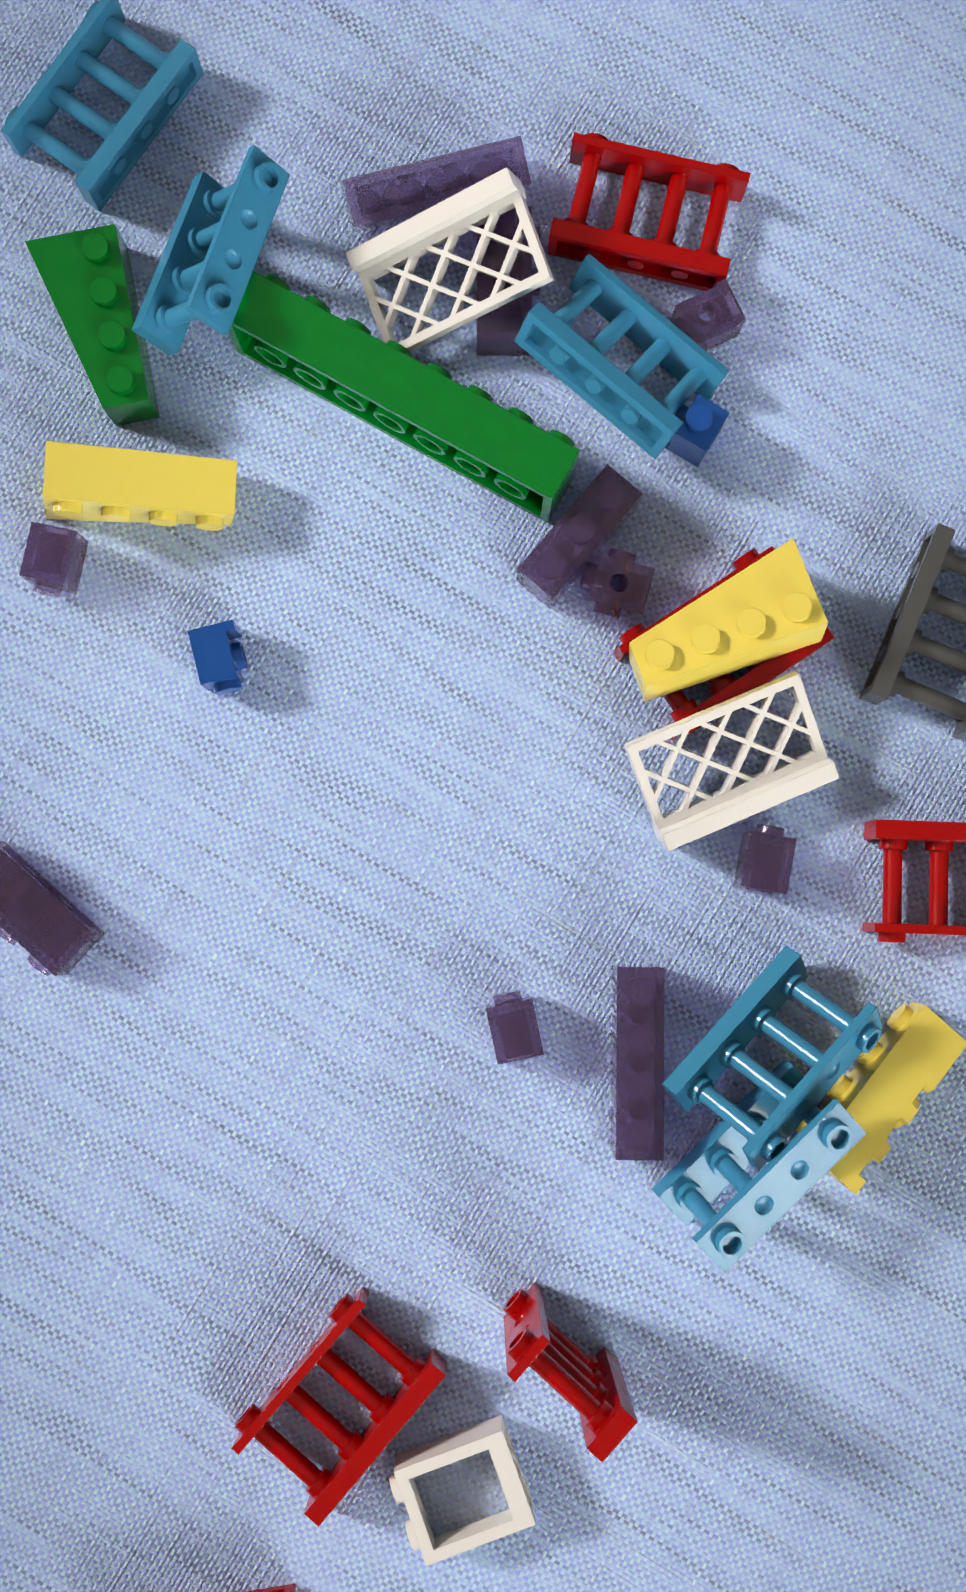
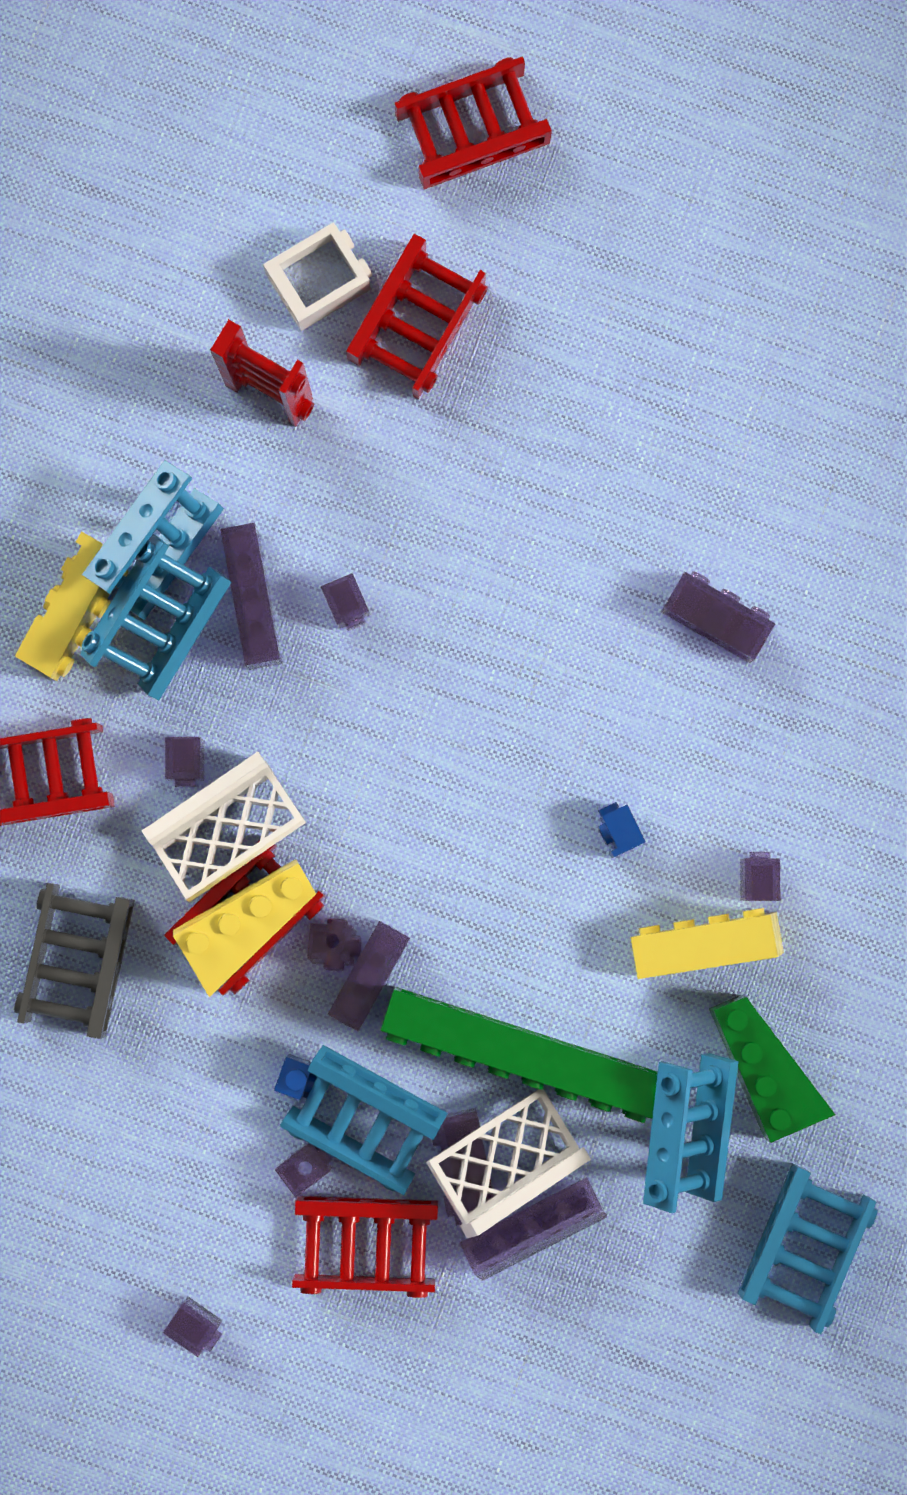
camera: 170 degrees right, 0 degrees up
(879, 157) = (194, 1327): none -> clear purple brick

